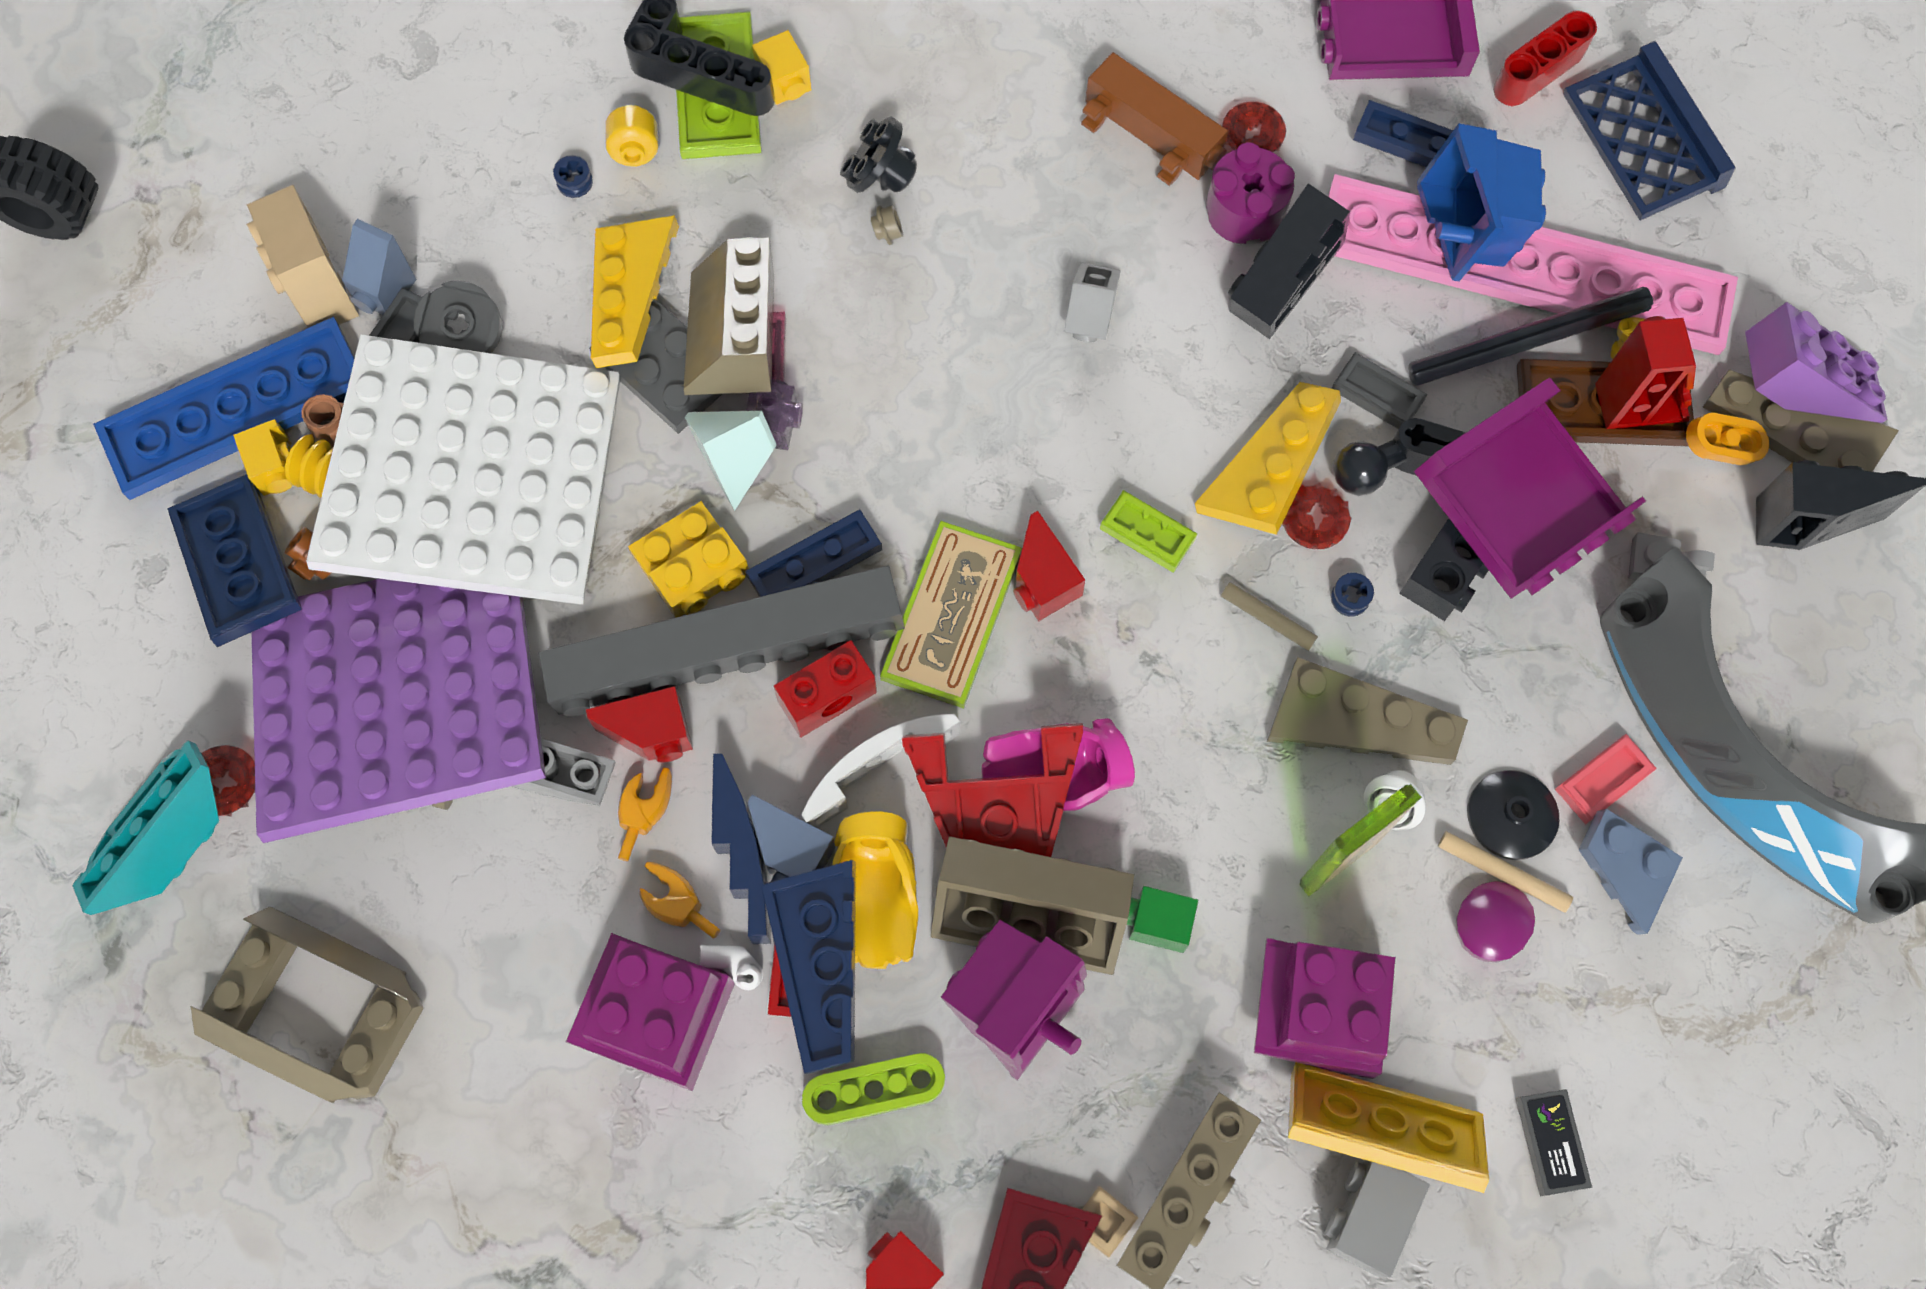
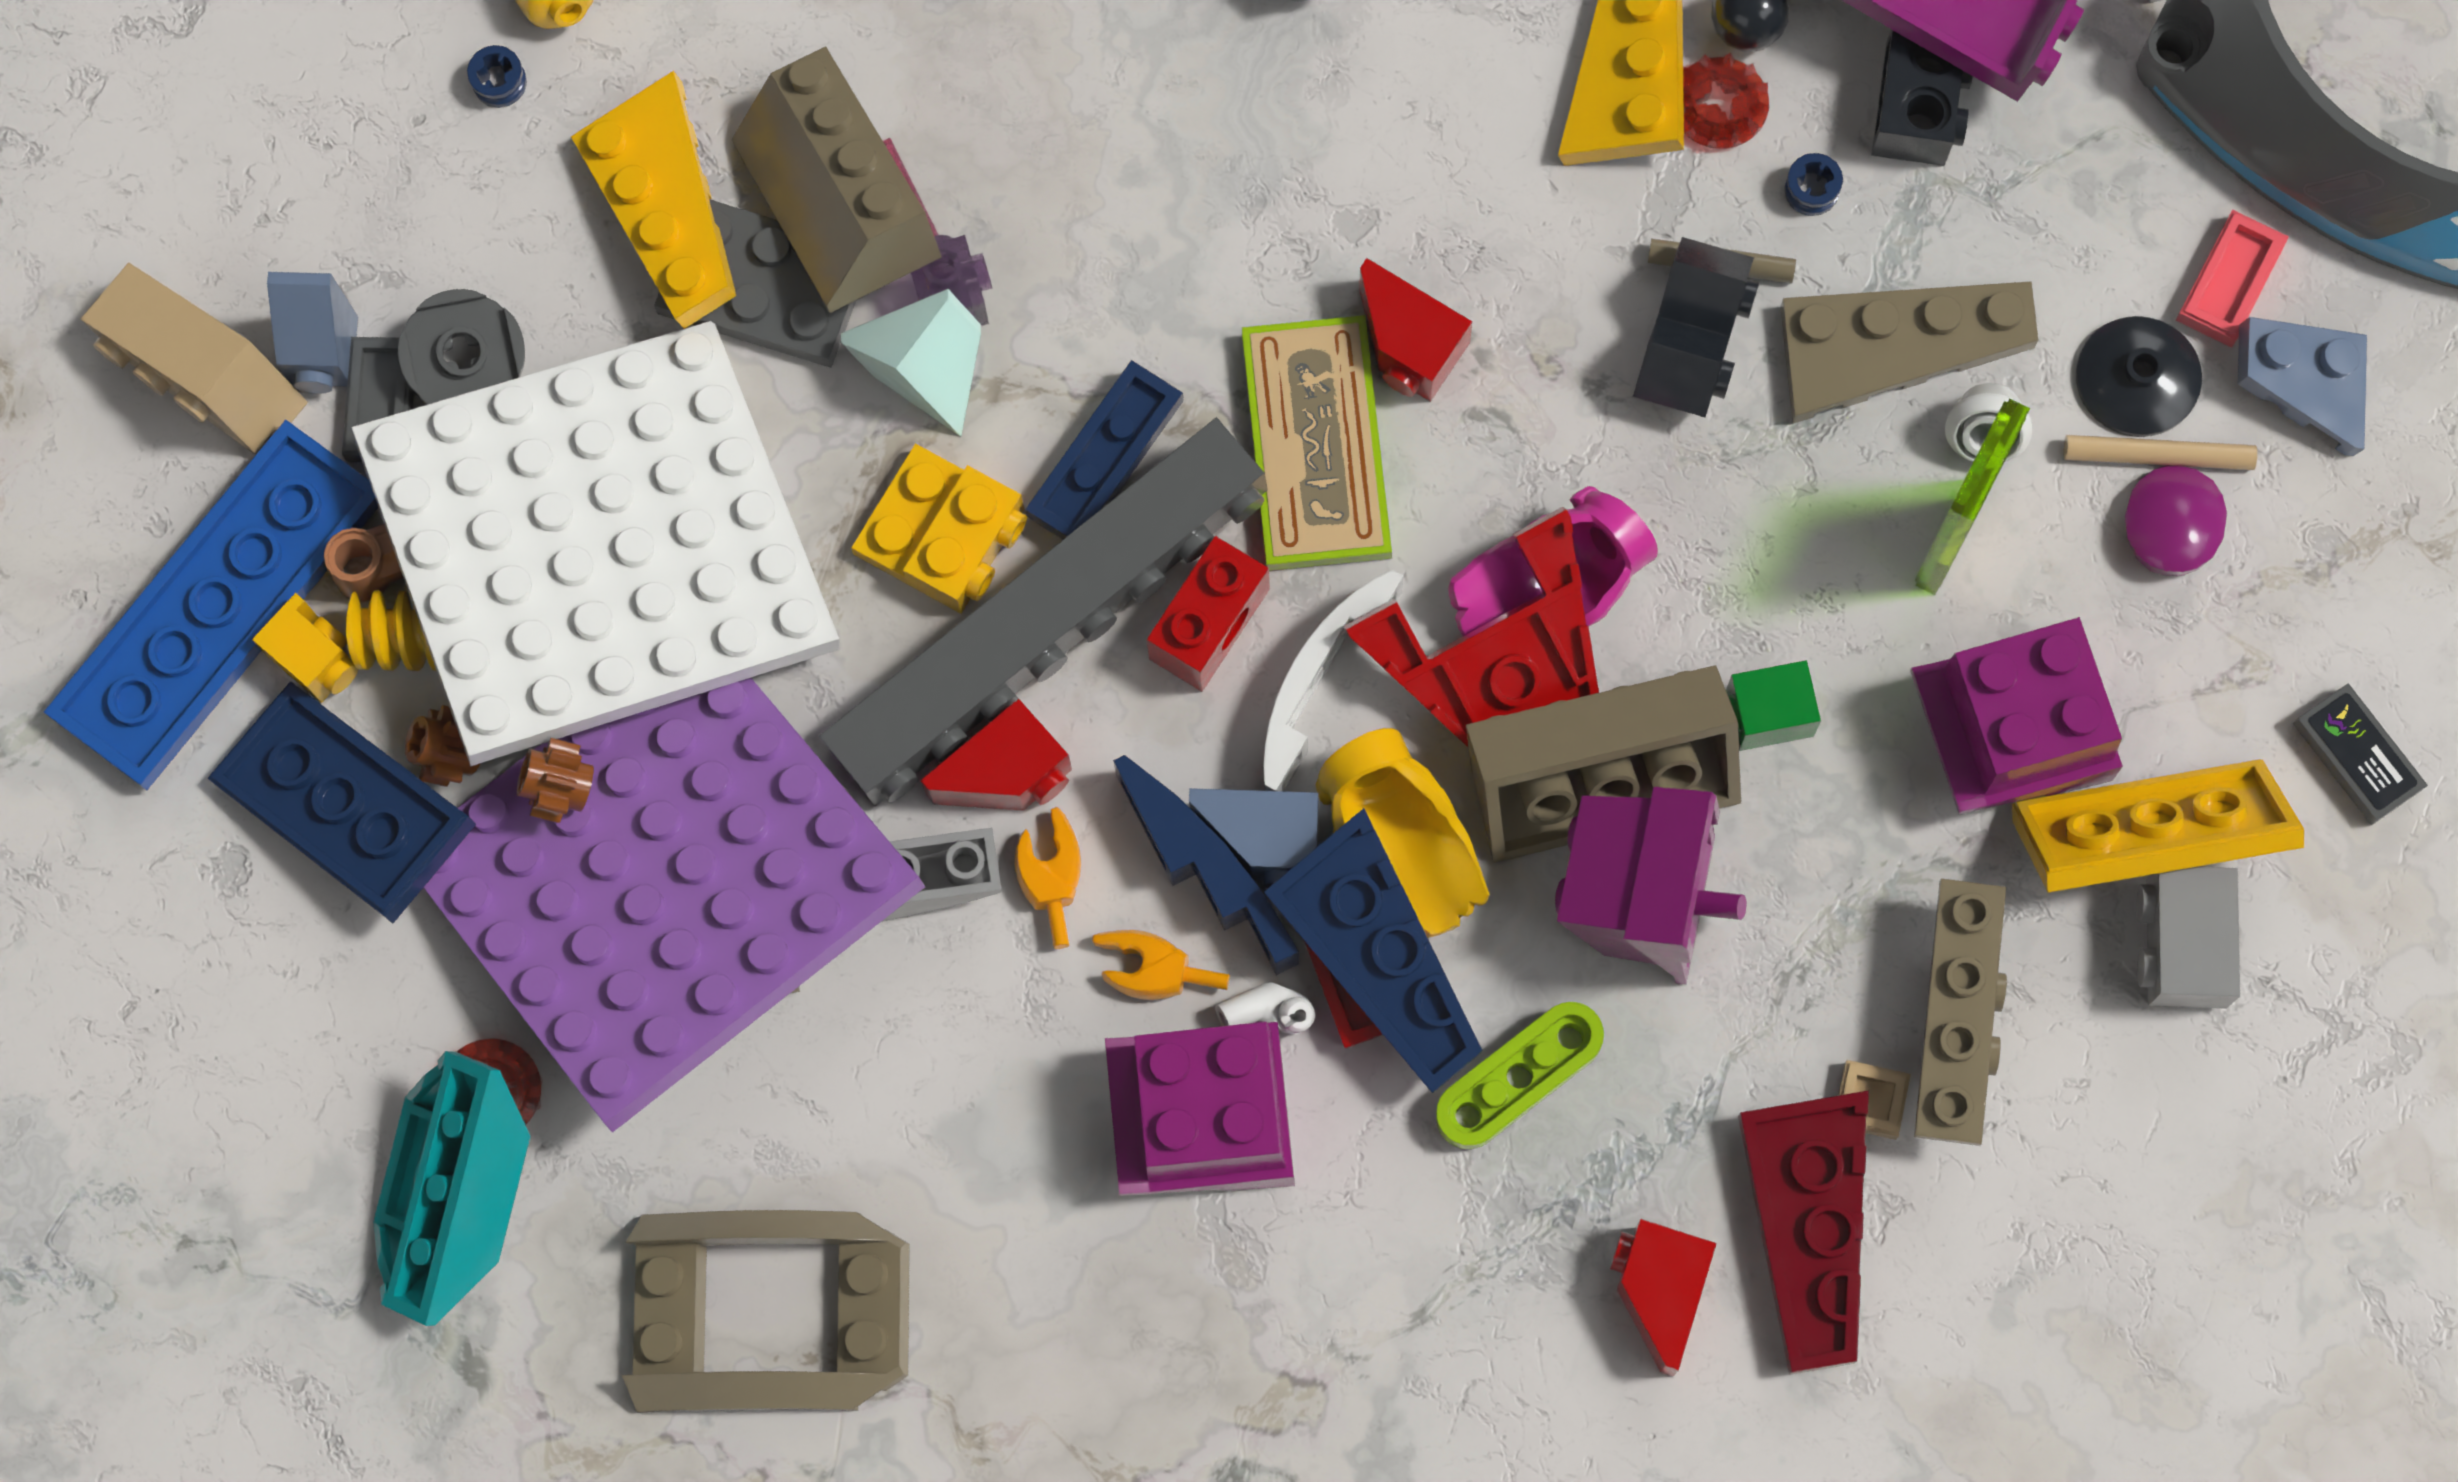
camera: 20 degrees left, 5 degrees up
(356, 602) = (555, 780): none -> dark orange gear
(1148, 531) = (1516, 219): lime plate -> none
(1234, 644) = (1694, 326): none -> black brick

